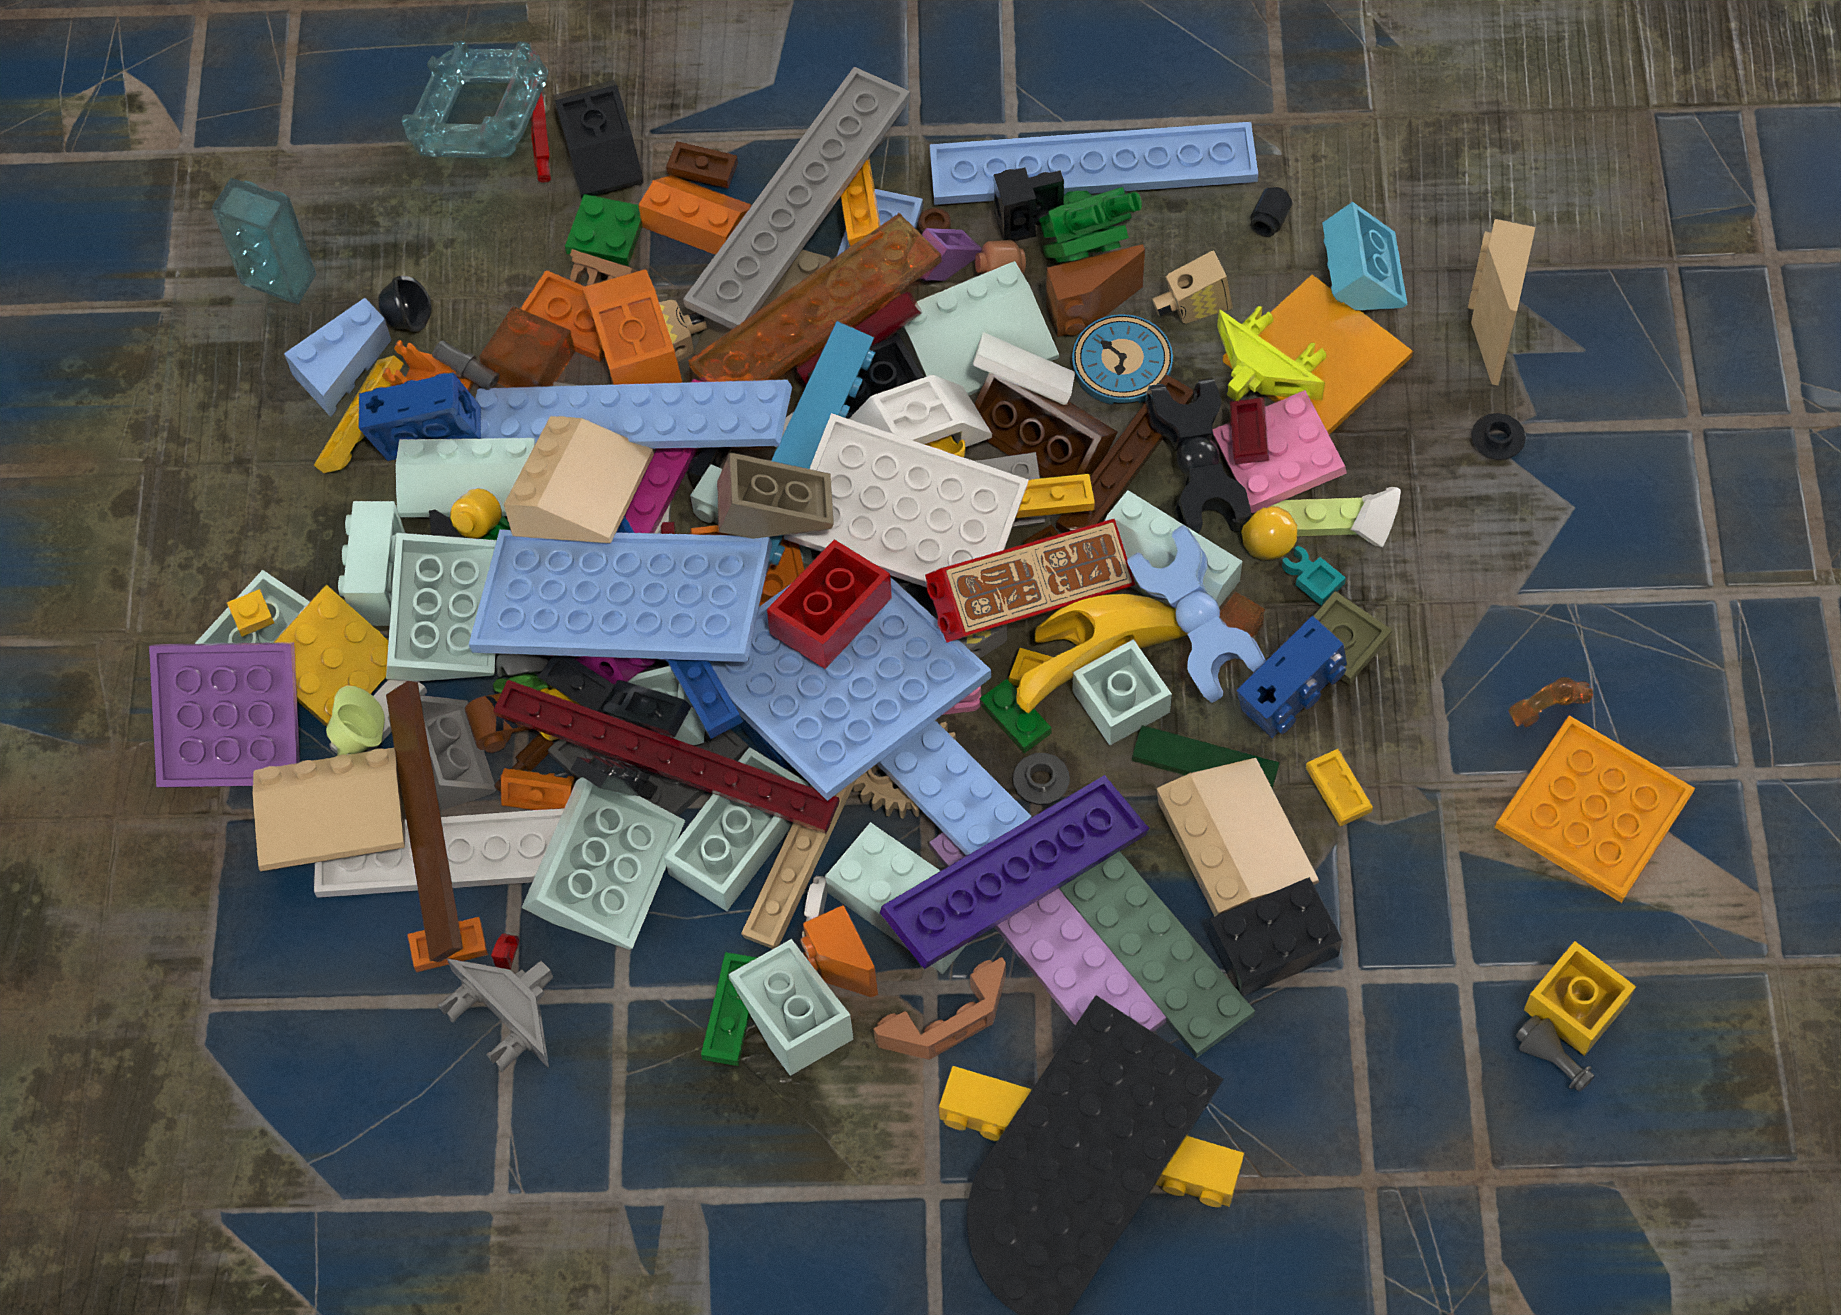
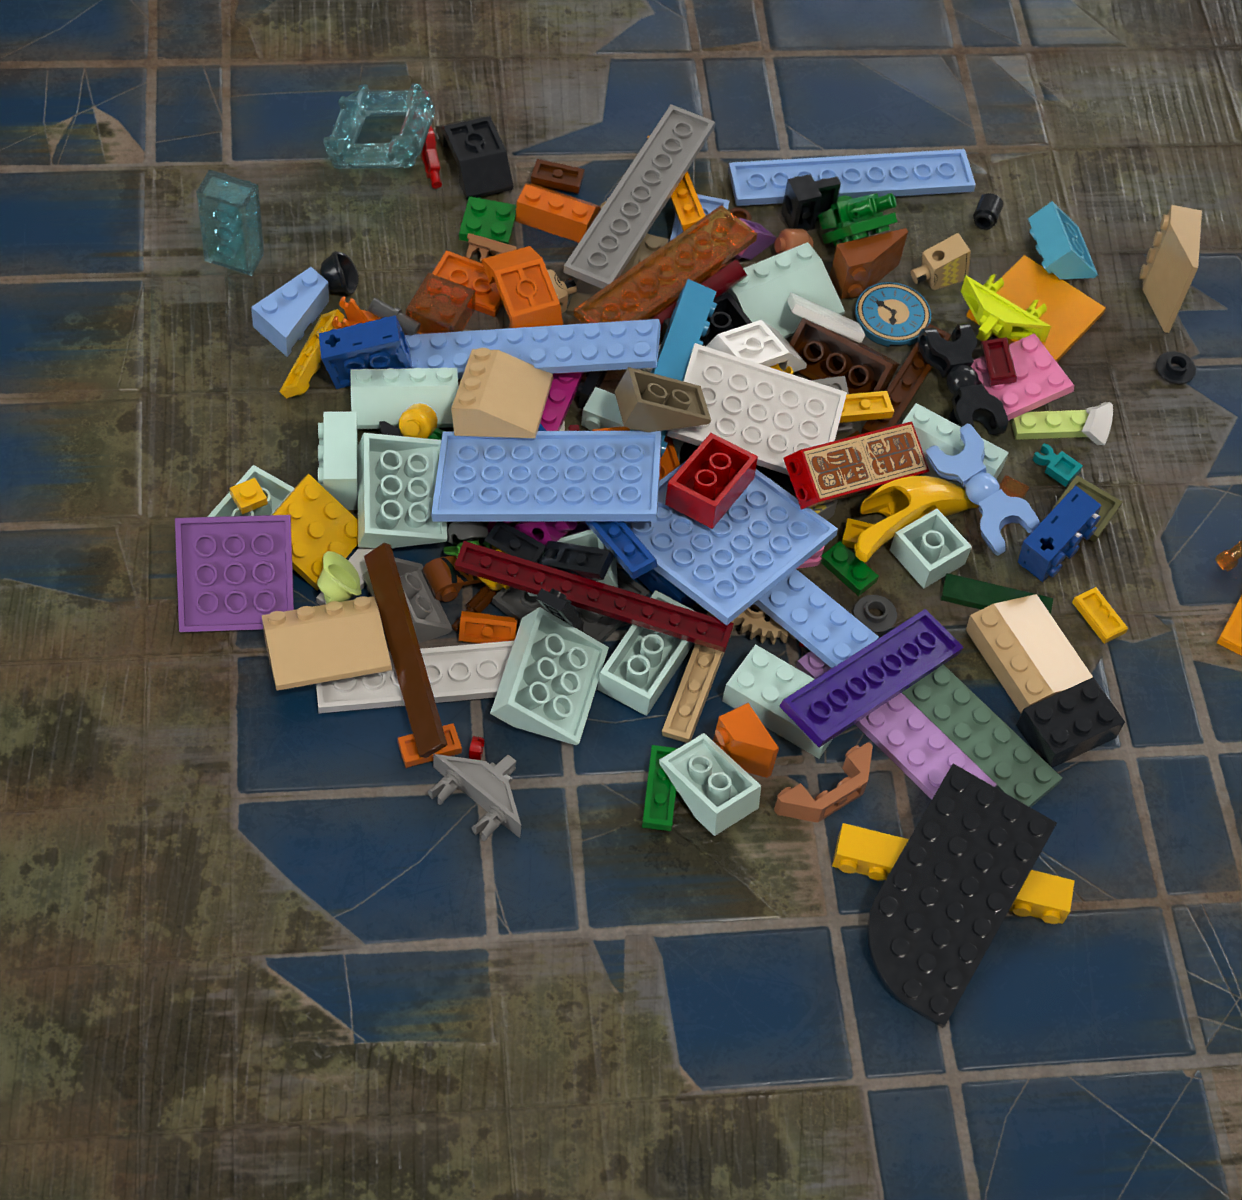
camera: 15 degrees left, 5 degrees down
(815, 899) = (716, 709): white tile -> none
(1269, 533) = (1022, 435): yellow hair -> none

